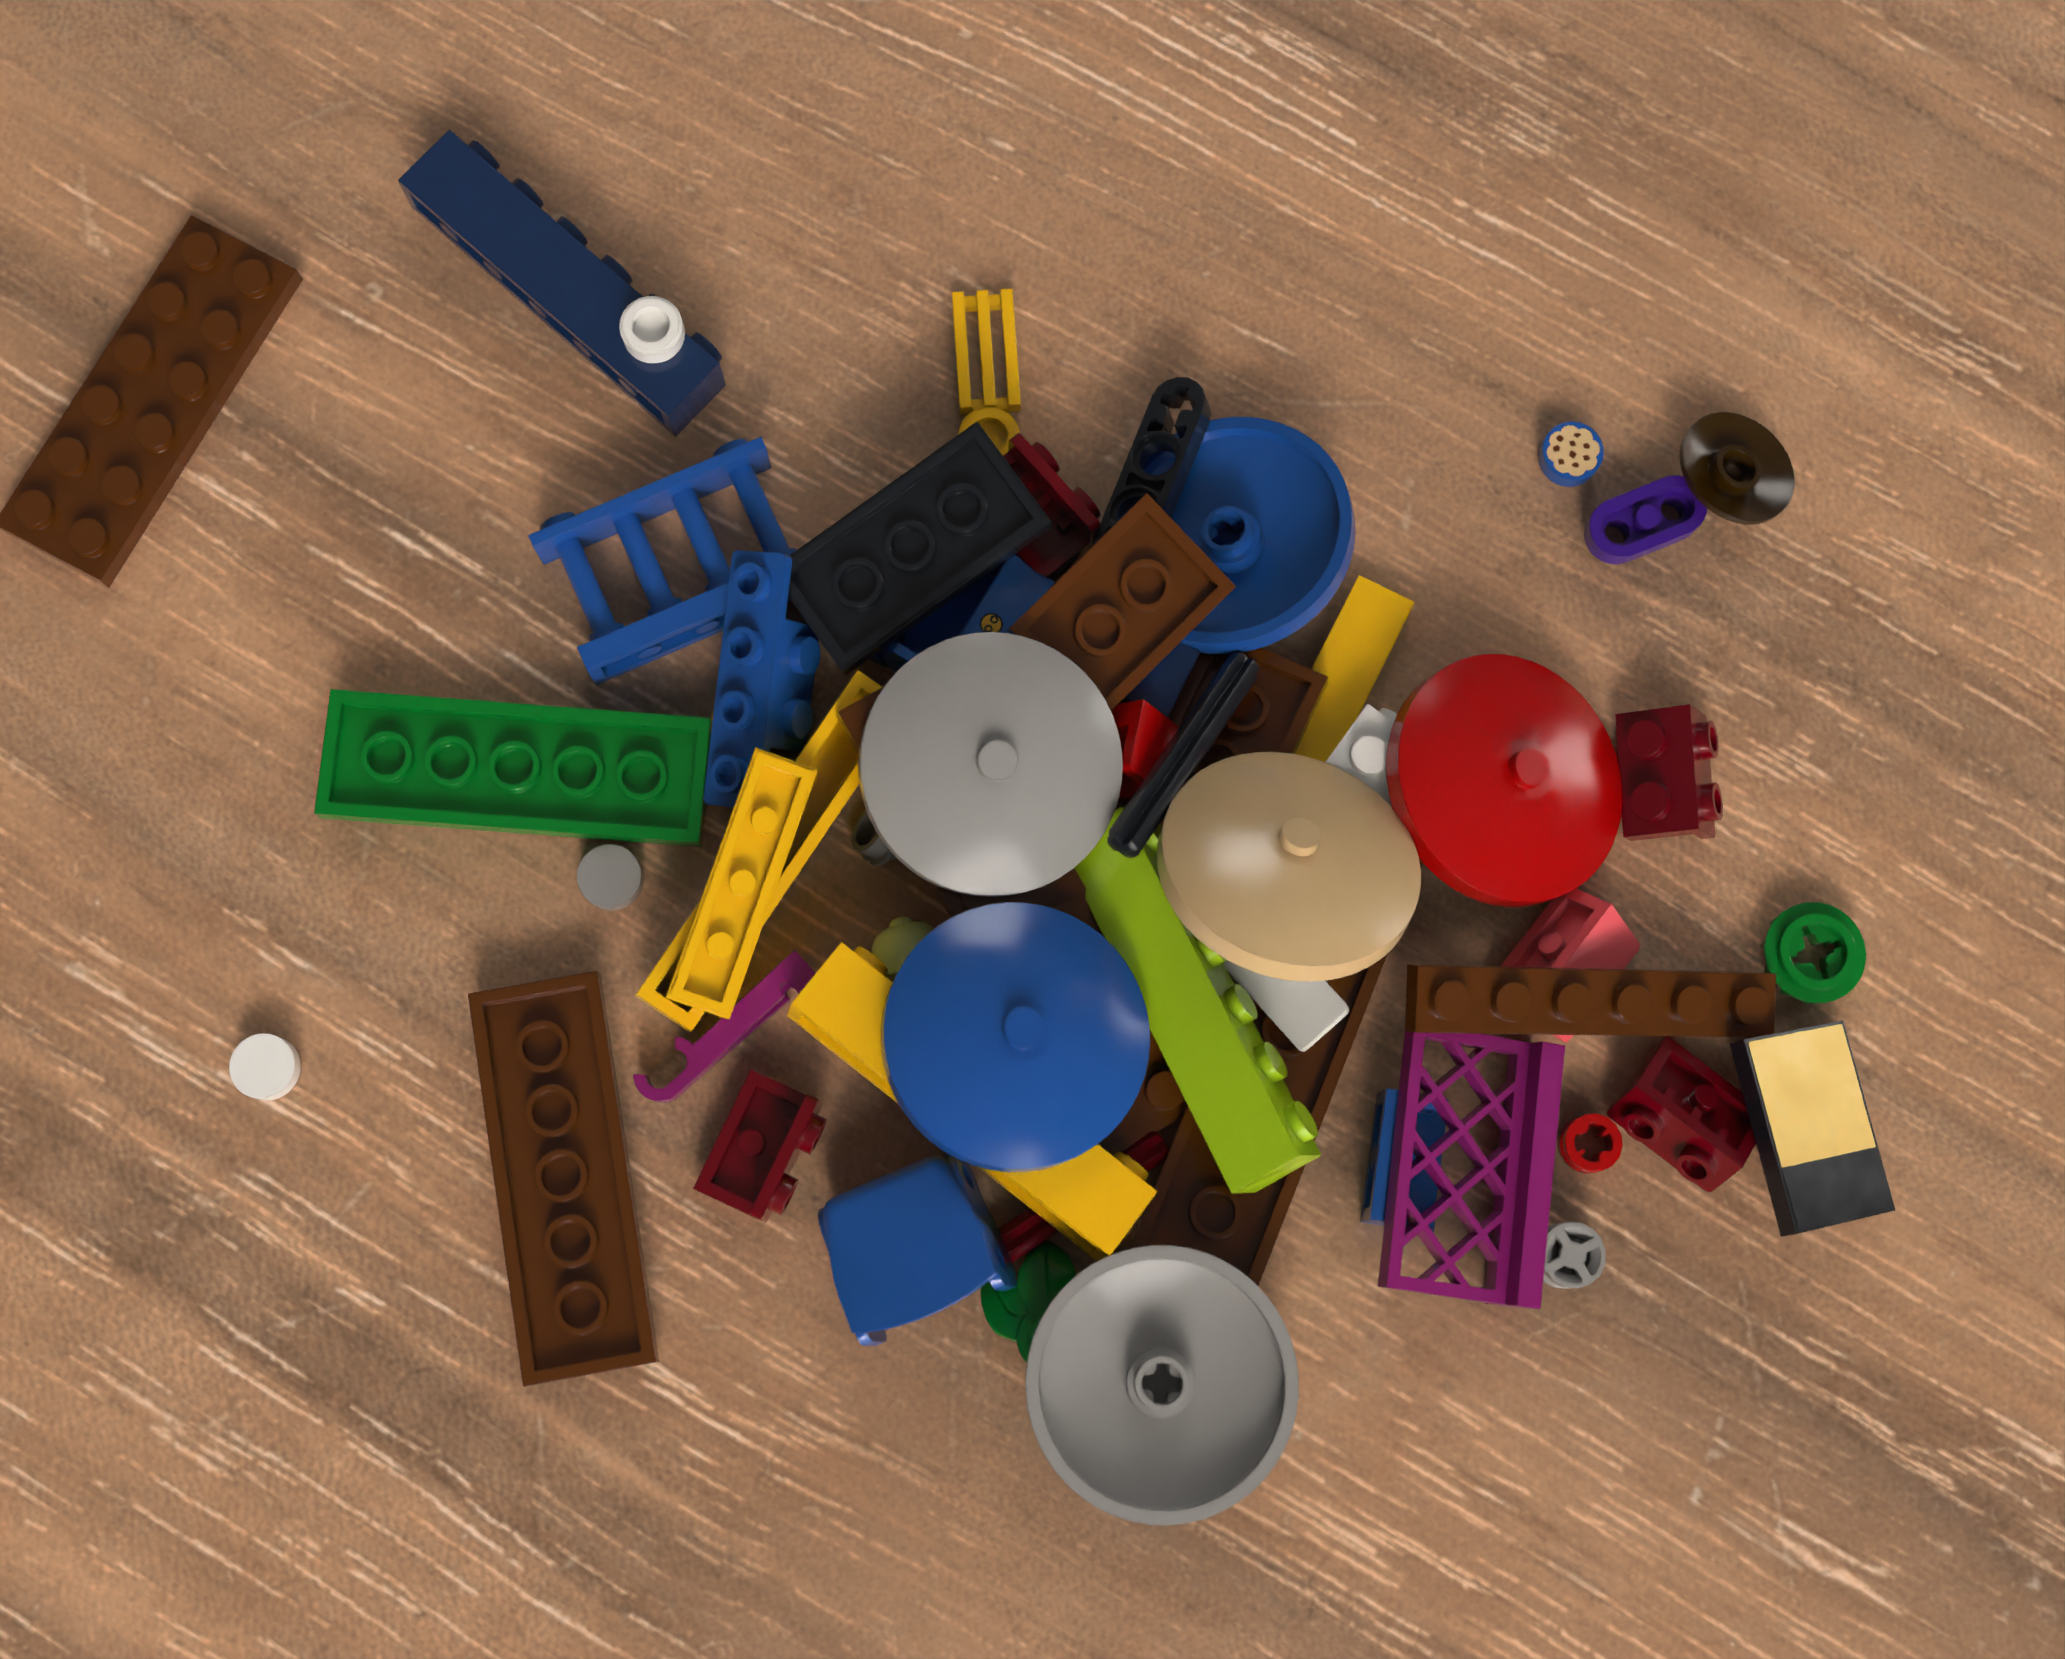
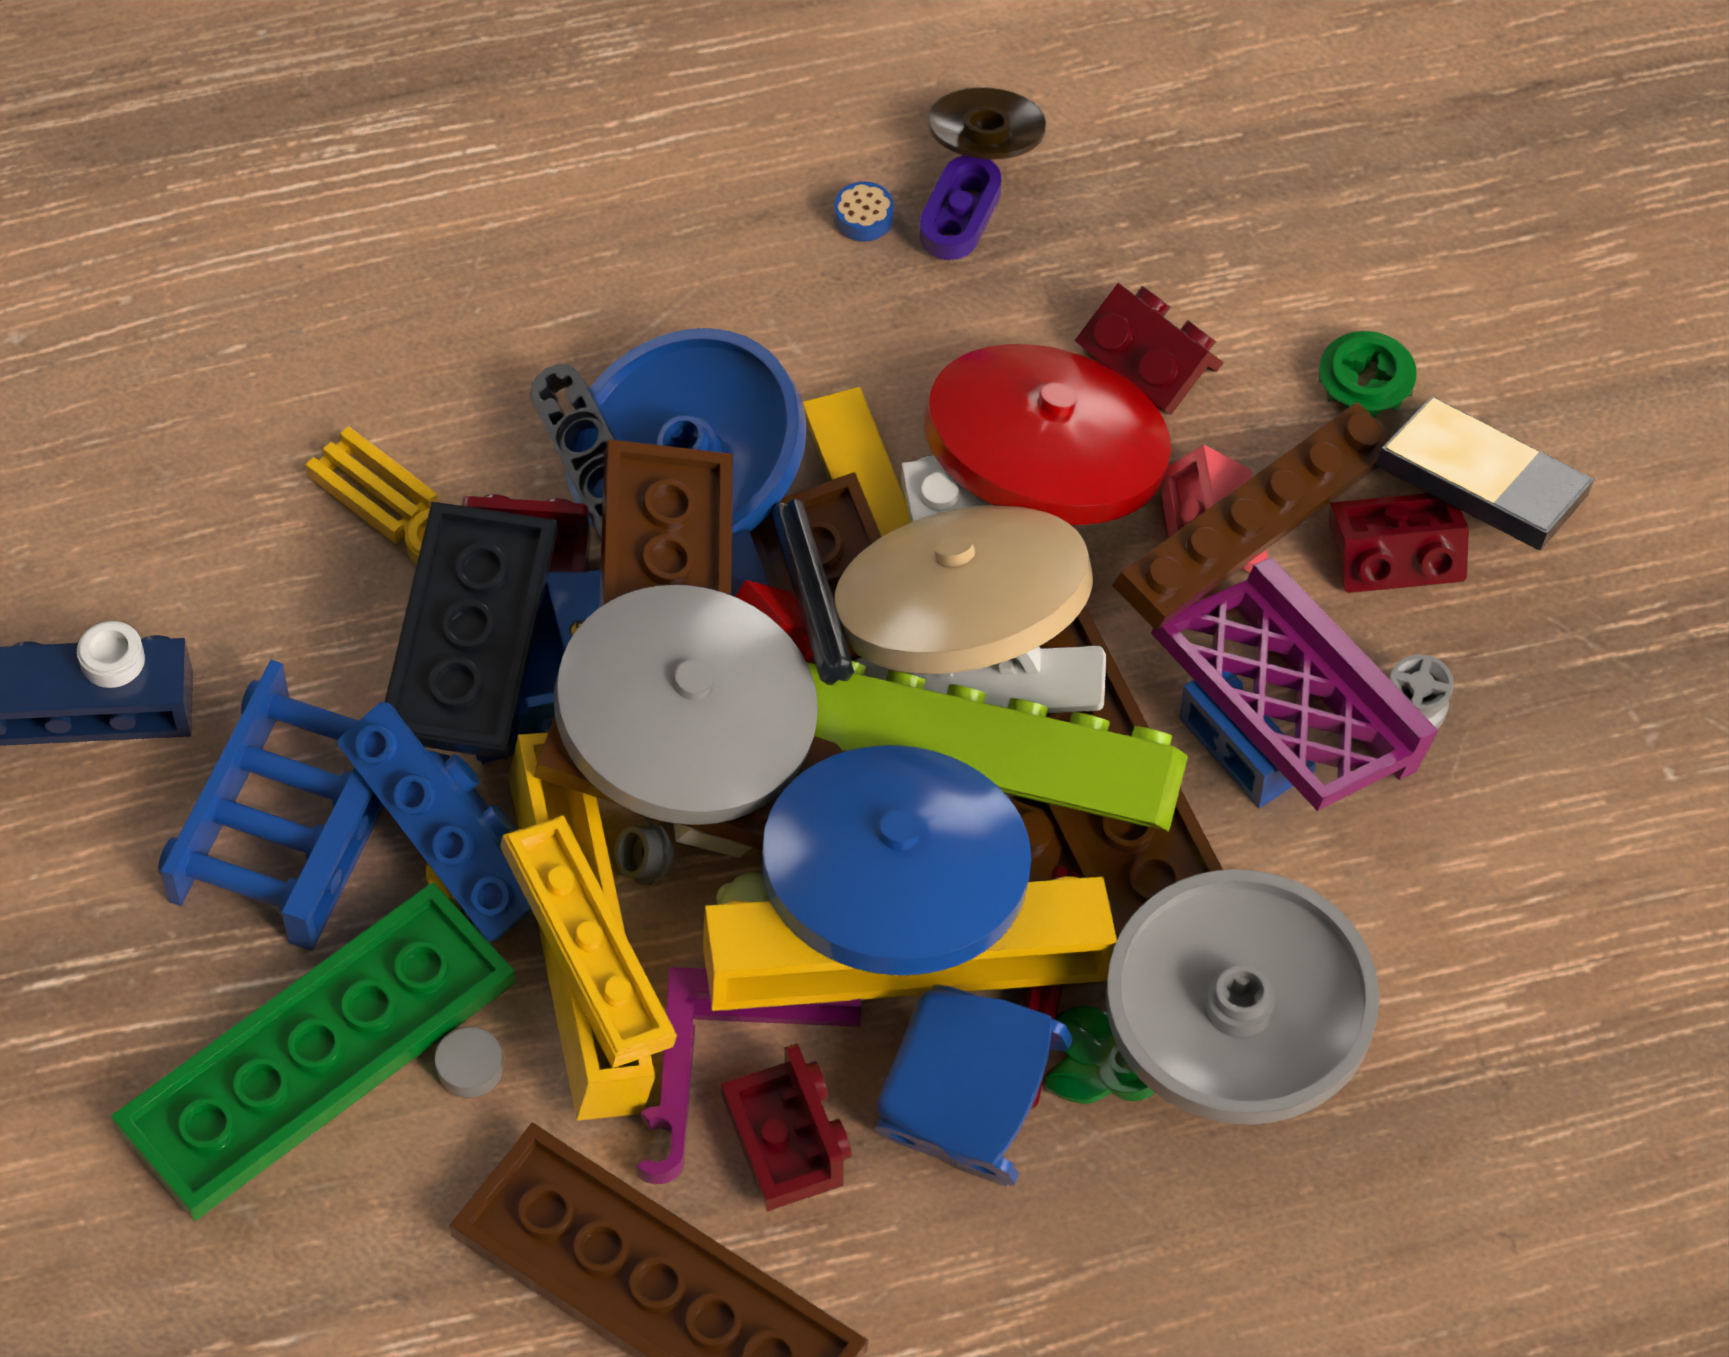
camera: 40 degrees left, 20 degrees down
(1599, 1161) = (1363, 599): red bush -> none

